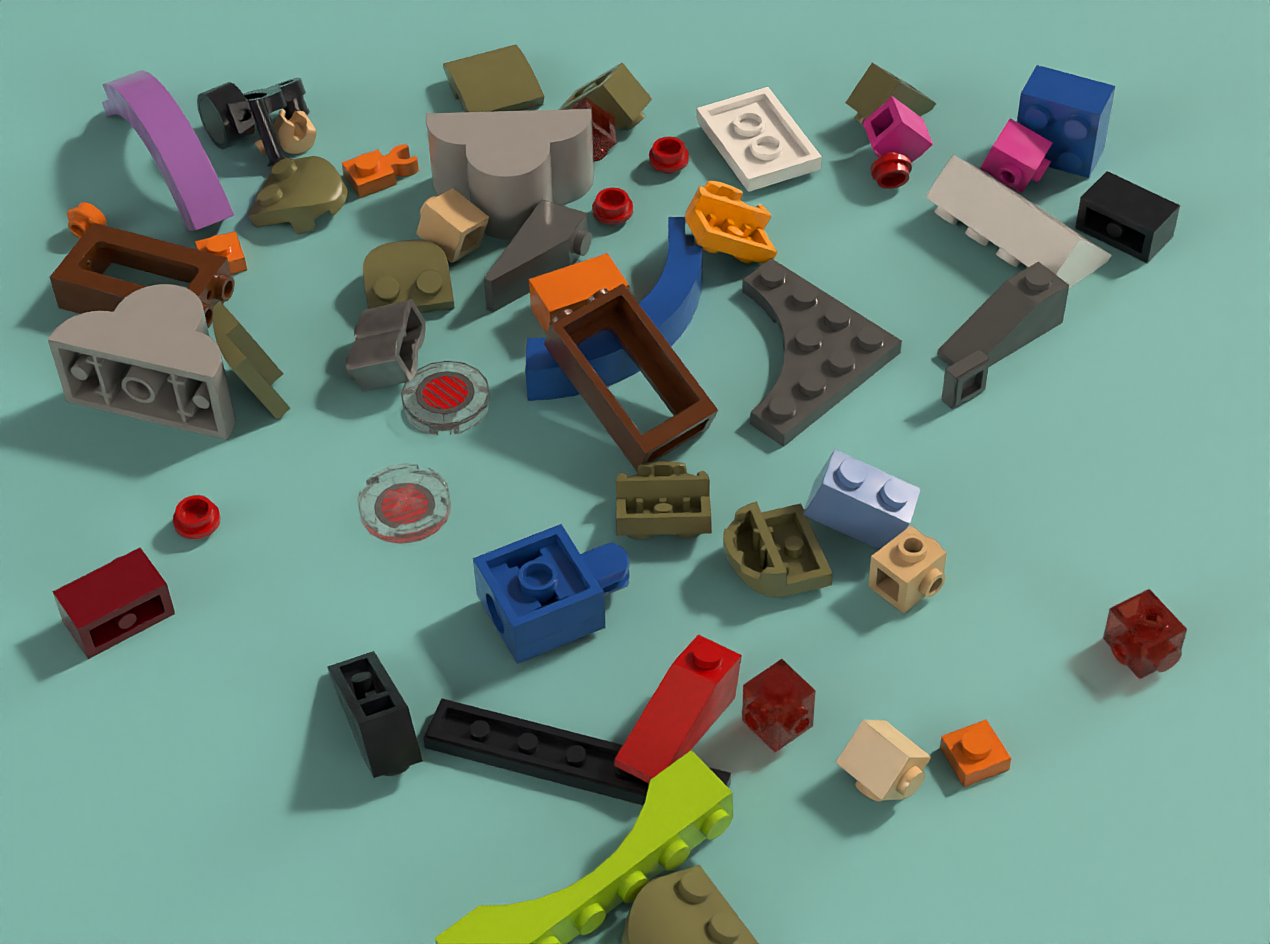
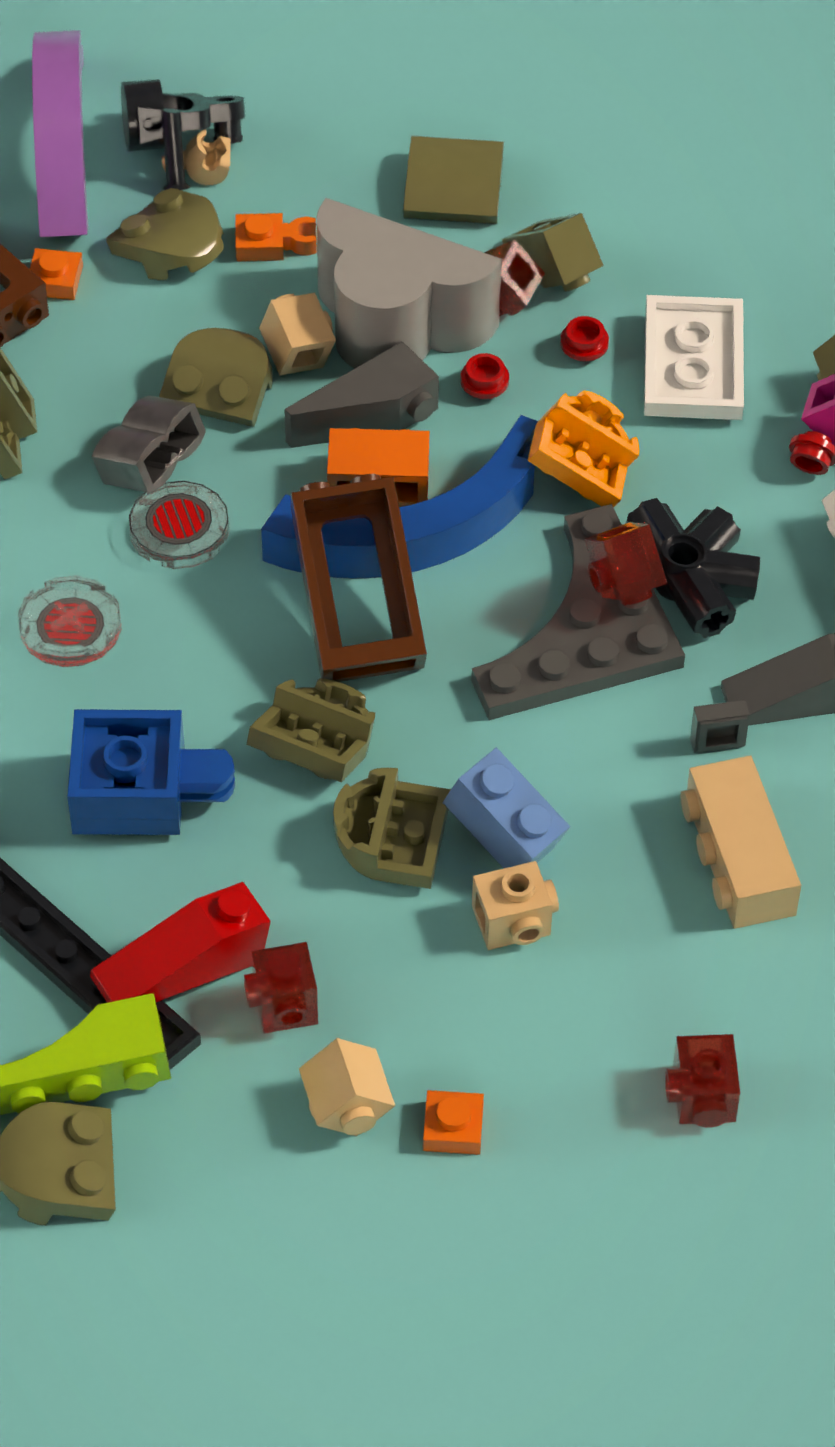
camera: 25 degrees right, 5 degrees up
(827, 285) = (625, 563): none -> clear red brick
(864, 277) = (698, 564): none -> black piece
(1042, 453) = (741, 842): none -> tan brick

